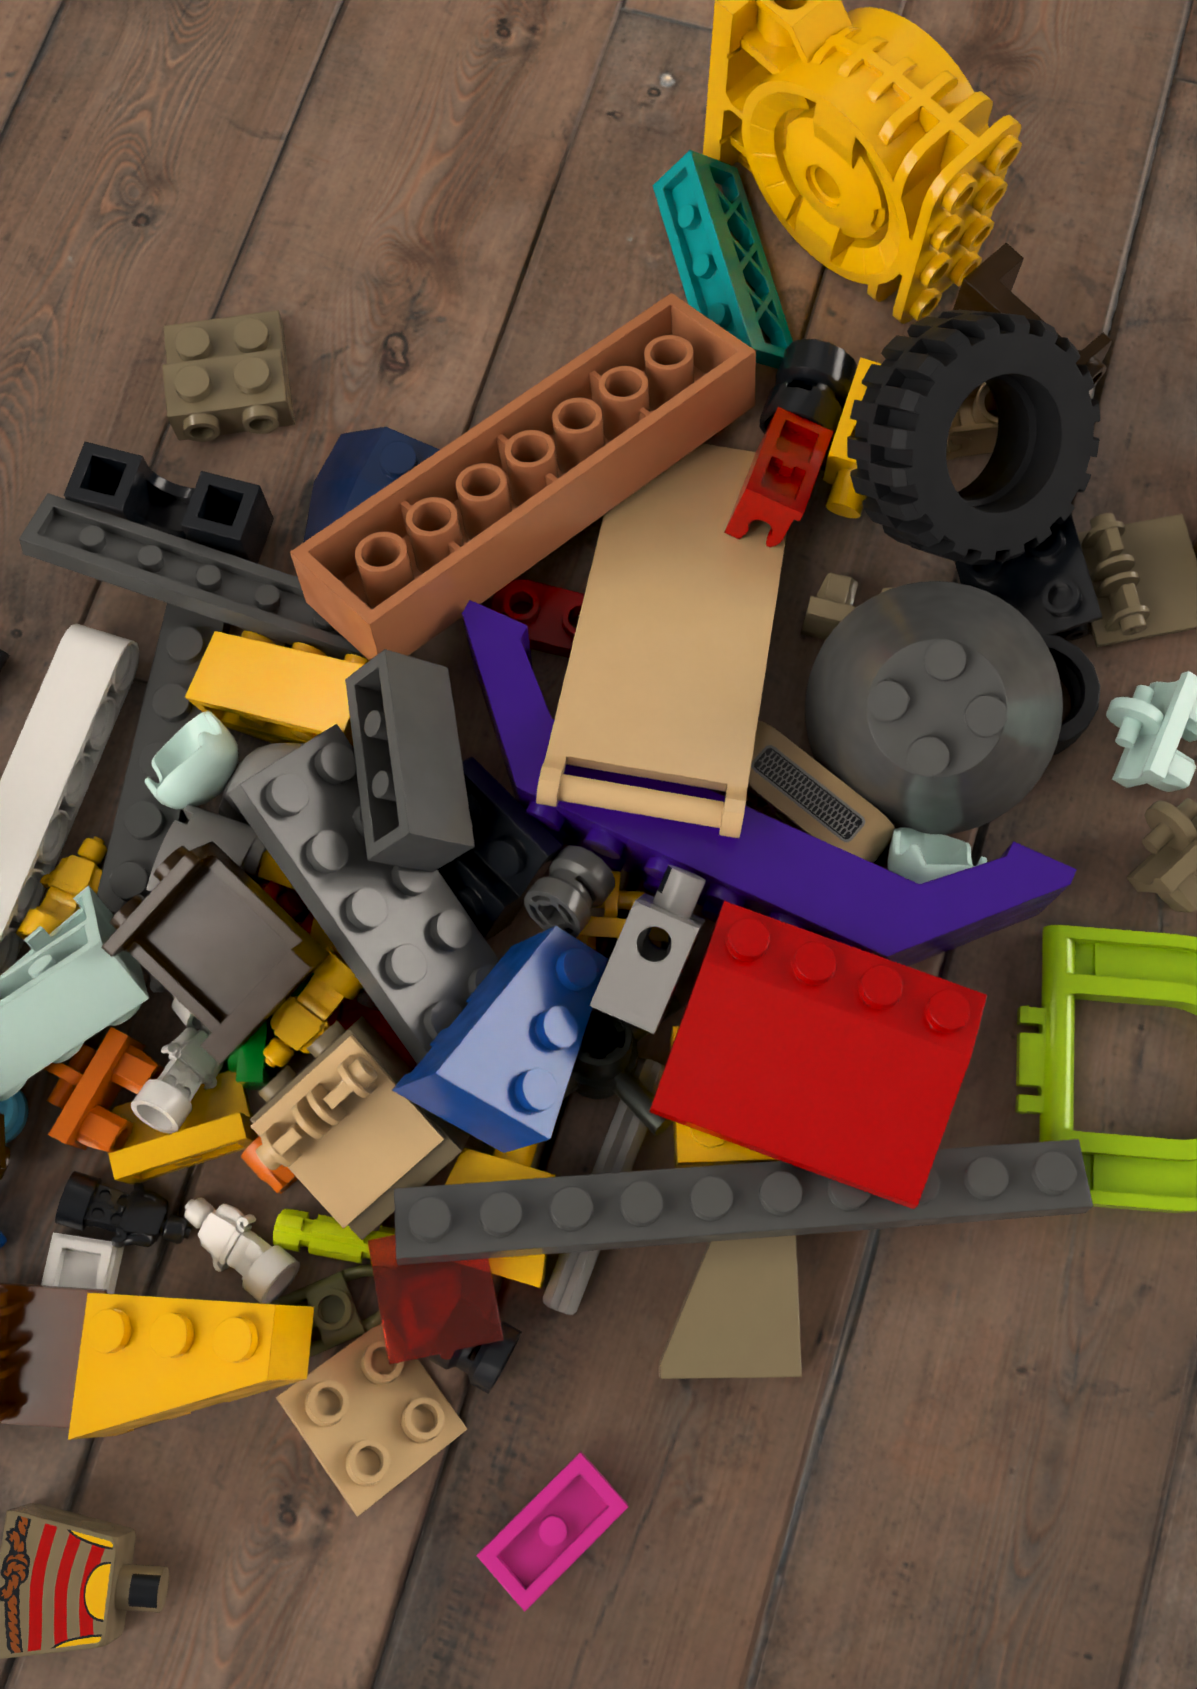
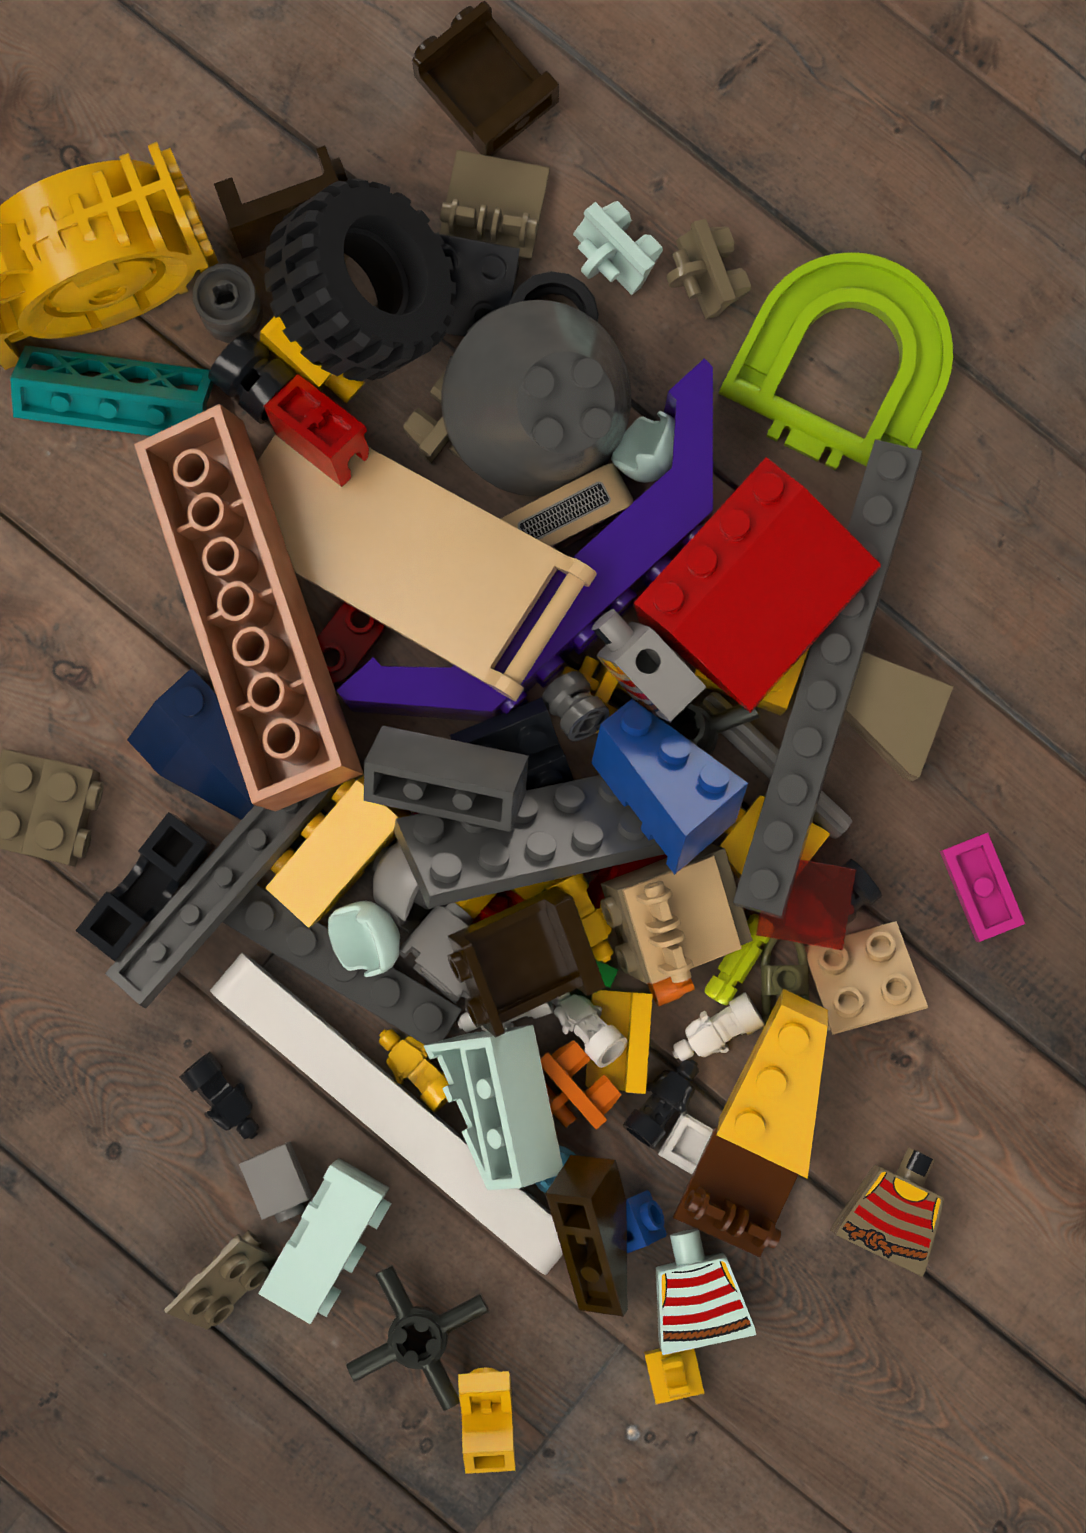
camera: 70 degrees left, 10 degrees up
(877, 316) = (227, 302): none -> dark grey wheel

